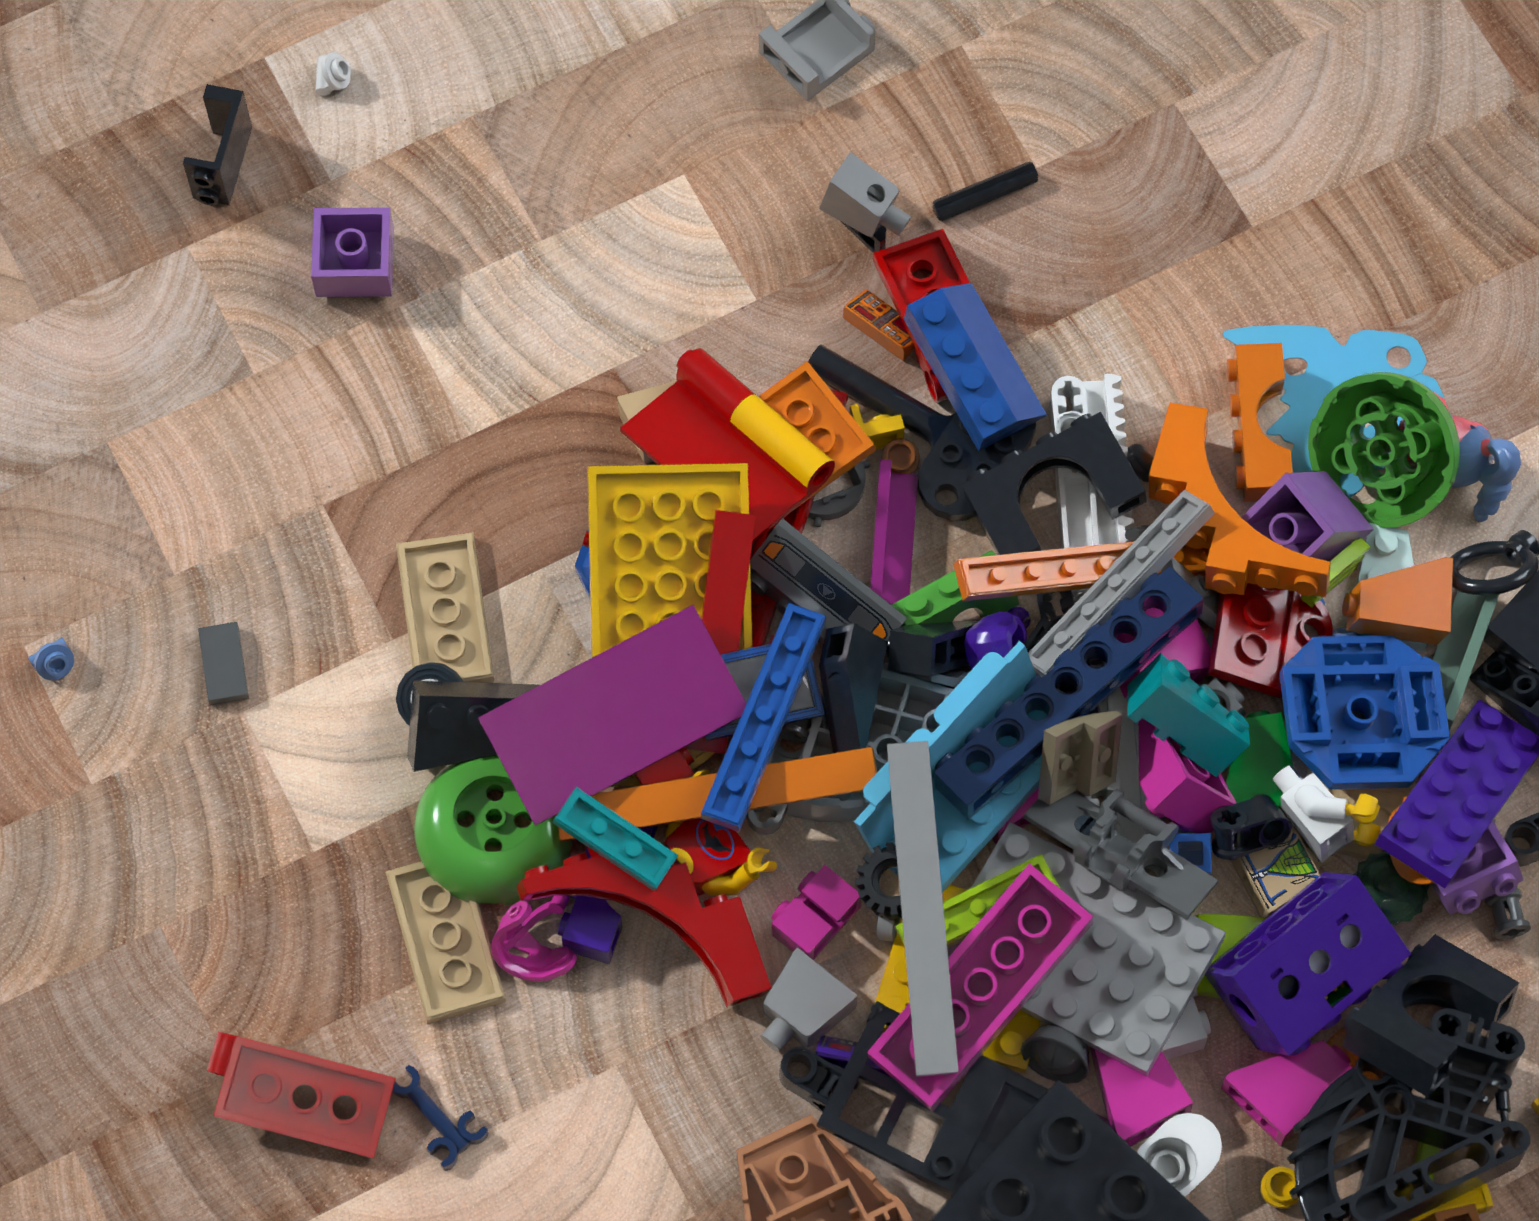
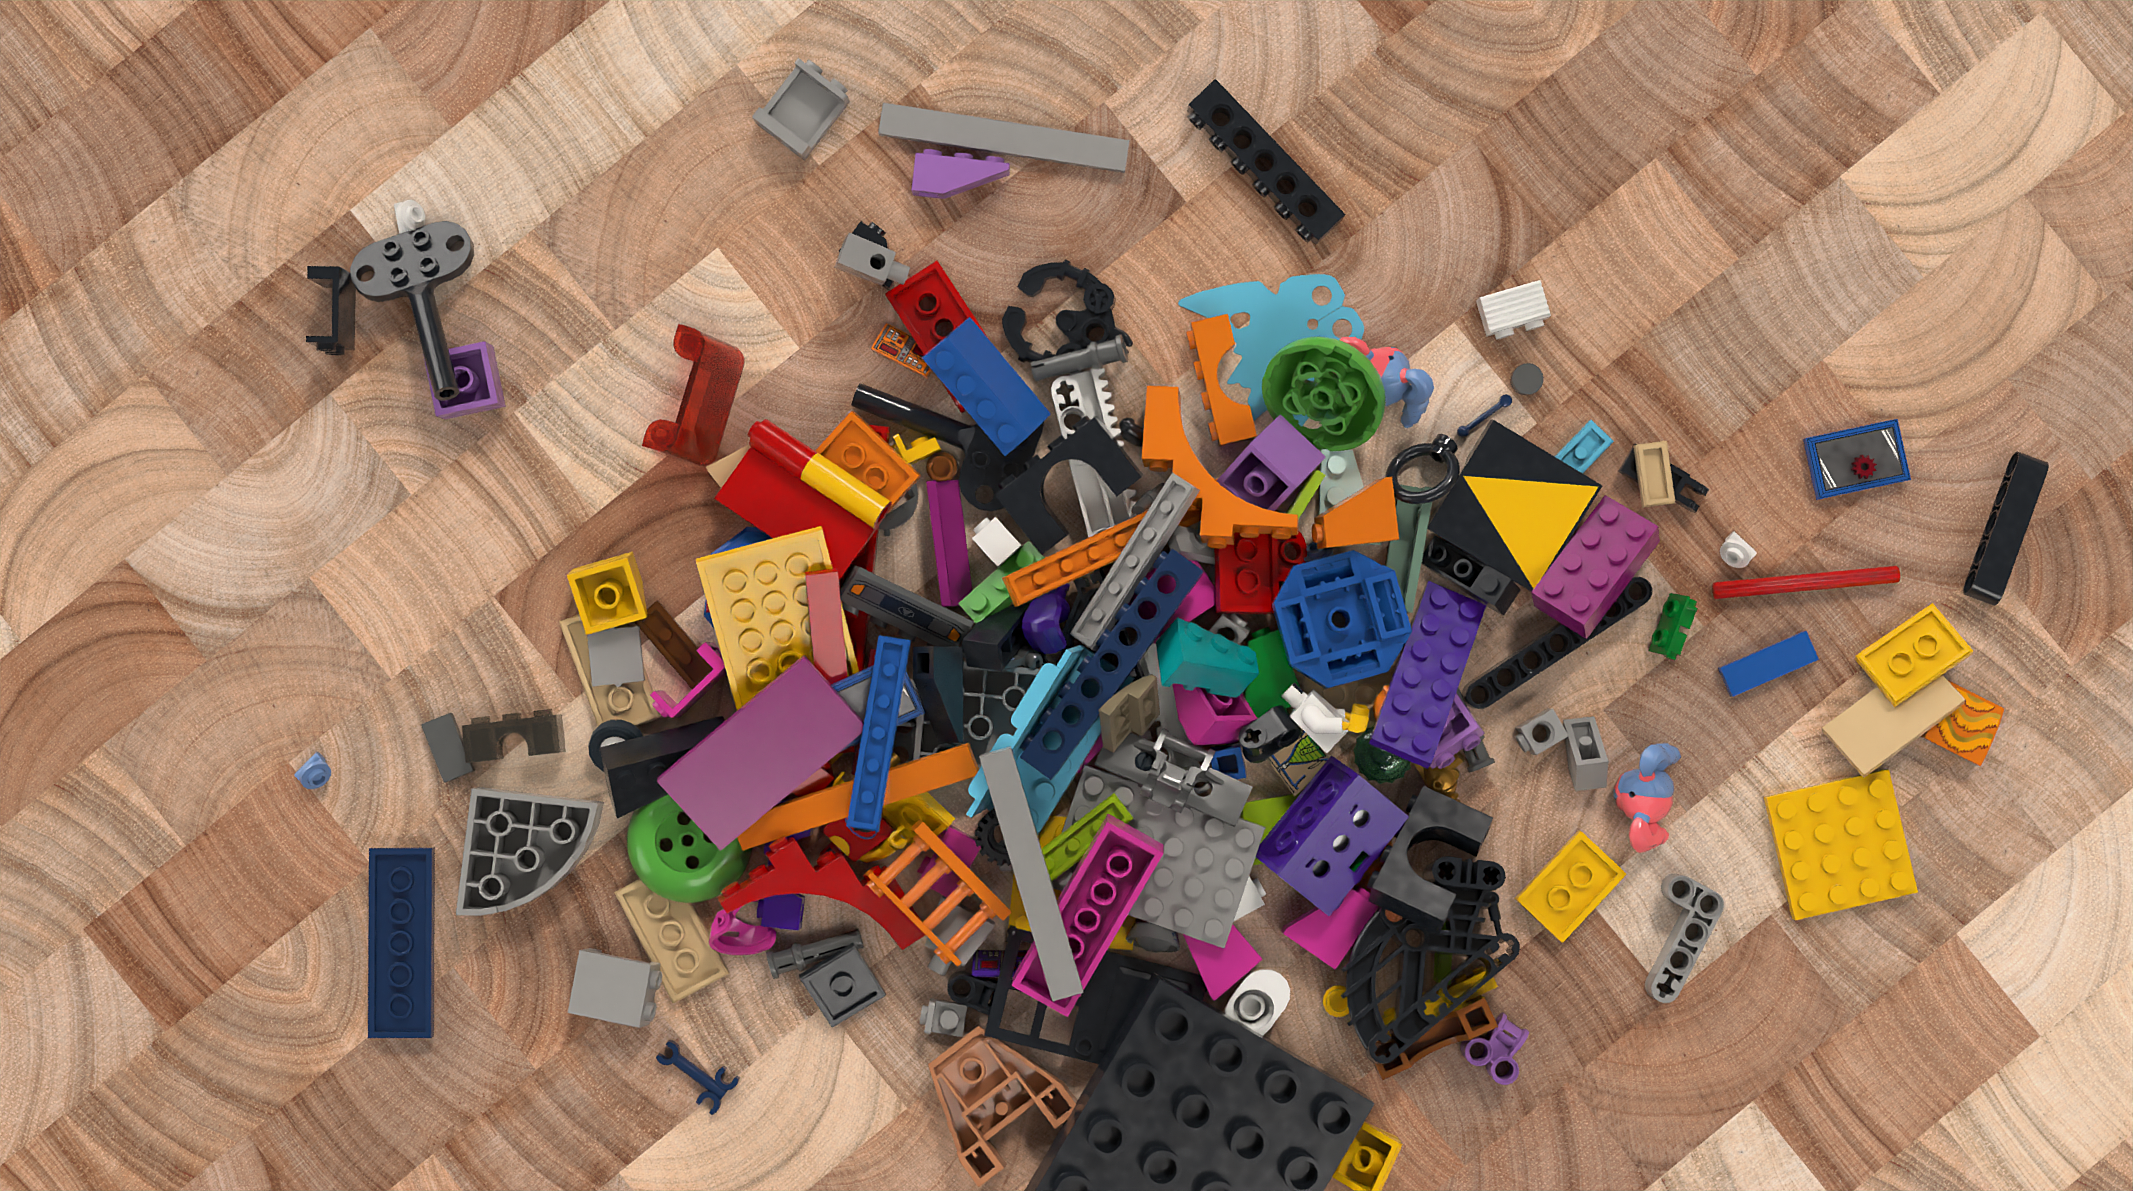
camera: 10 degrees left, 20 degrees up
(105, 879) = (401, 942): none -> dark blue plate
(262, 1084) = (561, 1080): red hinge -> none
(275, 656) = (485, 739): none -> clear smoke arch
(286, 789) = (520, 847): none -> light grey brick
(325, 124) = (412, 268): none -> piece
(360, 979) = (614, 988): none -> light grey panel
(455, 594) = (616, 656): none -> light grey piece
(465, 514) = (608, 593): none -> yellow slope
(531, 601) = (674, 644): none -> reddish brown tile
(550, 644) = (668, 707): none -> dark pink panel
(615, 838) = (784, 854): teal tile -> none
(617, 351) = (705, 402): none -> clear red windscreen
(647, 1037) = (842, 985): none -> tile
(670, 989) = (799, 956): none -> dark grey pin
(766, 1105) = (944, 1017): none -> light grey bracket
(793, 843) = (910, 810): none -> yellow tile
(815, 897) = (967, 885): none -> orange fence
(948, 538) = (995, 541): none -> white brick
(979, 142) = (947, 176): none -> medium lavender slope
(985, 191) = (965, 216): black axle -> none
(1049, 117) = (1003, 137): none -> light grey tile
(1093, 330) = (1074, 324): none -> black piece
(1111, 357) = (1093, 356): none -> dark grey pin
(1310, 119) = (1218, 100): none -> black brick
(1458, 928) = (1445, 779): none -> pearl gold piece

